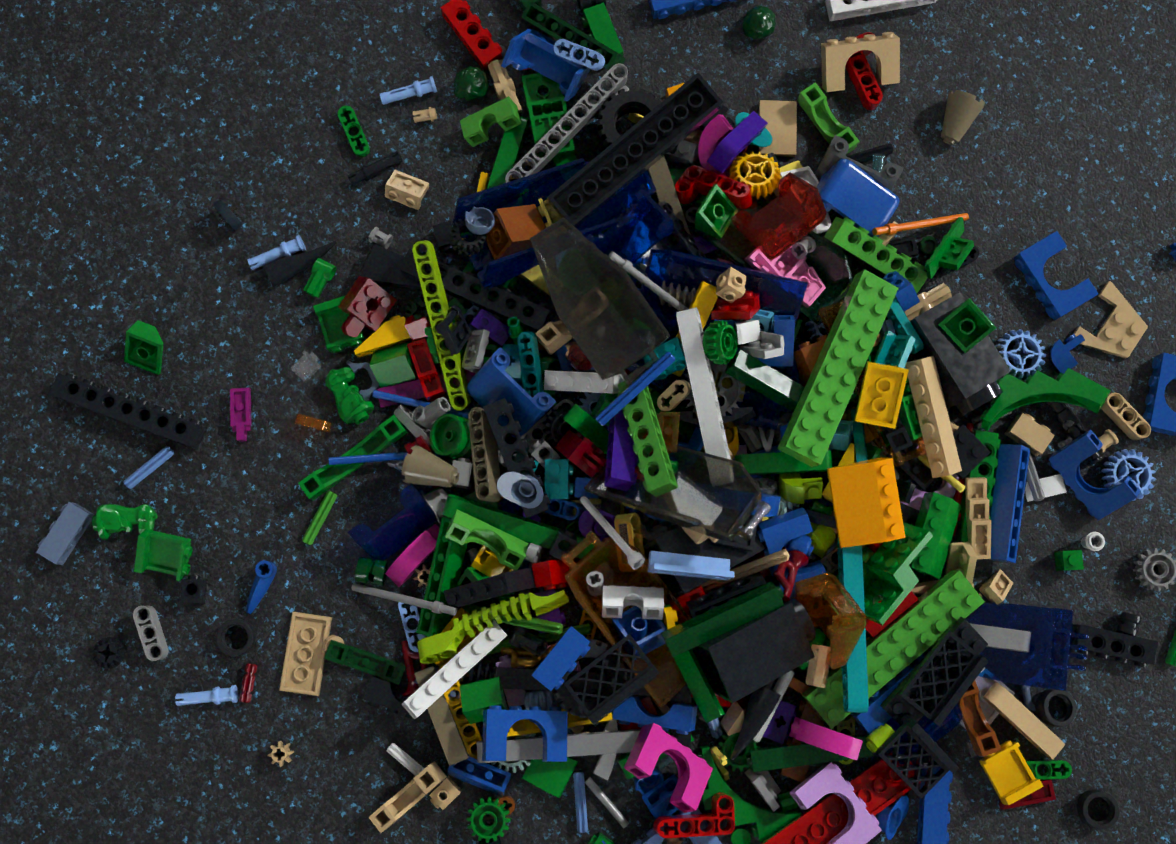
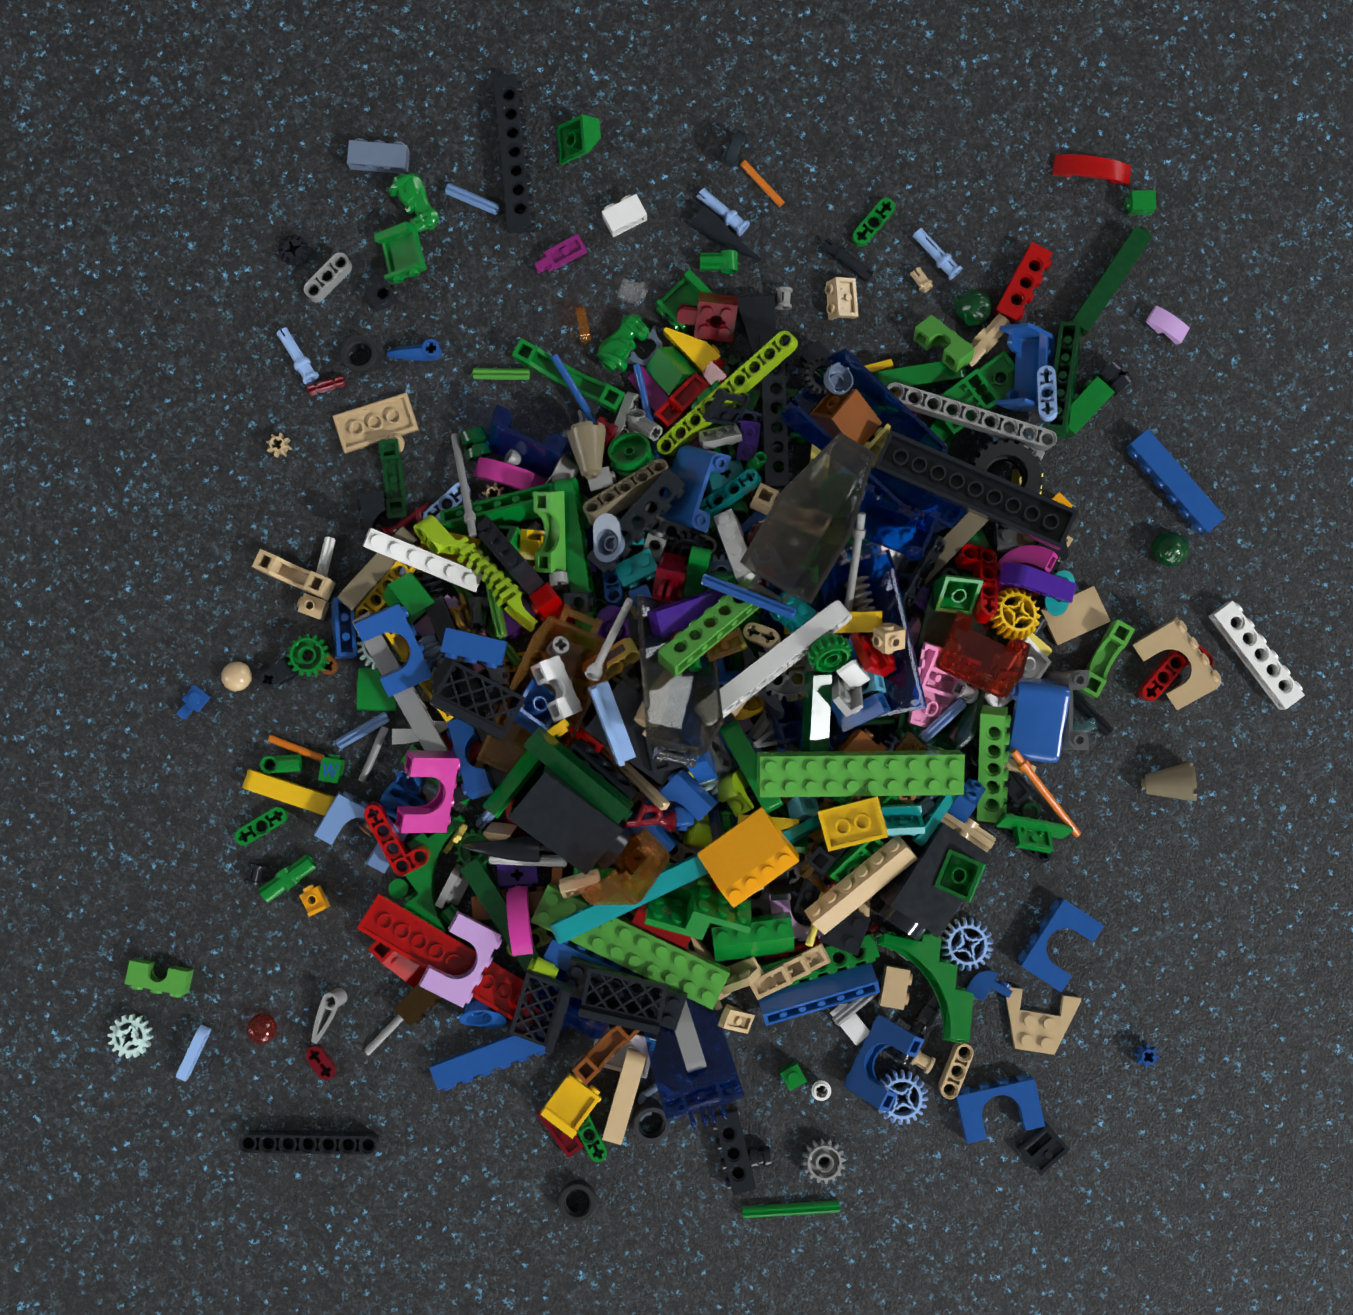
camera: 65 degrees right, 5 degrees up
(234, 339) = (624, 215): none -> white brick
(270, 208) = (762, 183): none -> orange bar
(401, 543) = (512, 457): none -> light grey hinge
(819, 279) = (942, 720): none -> medium blue axle

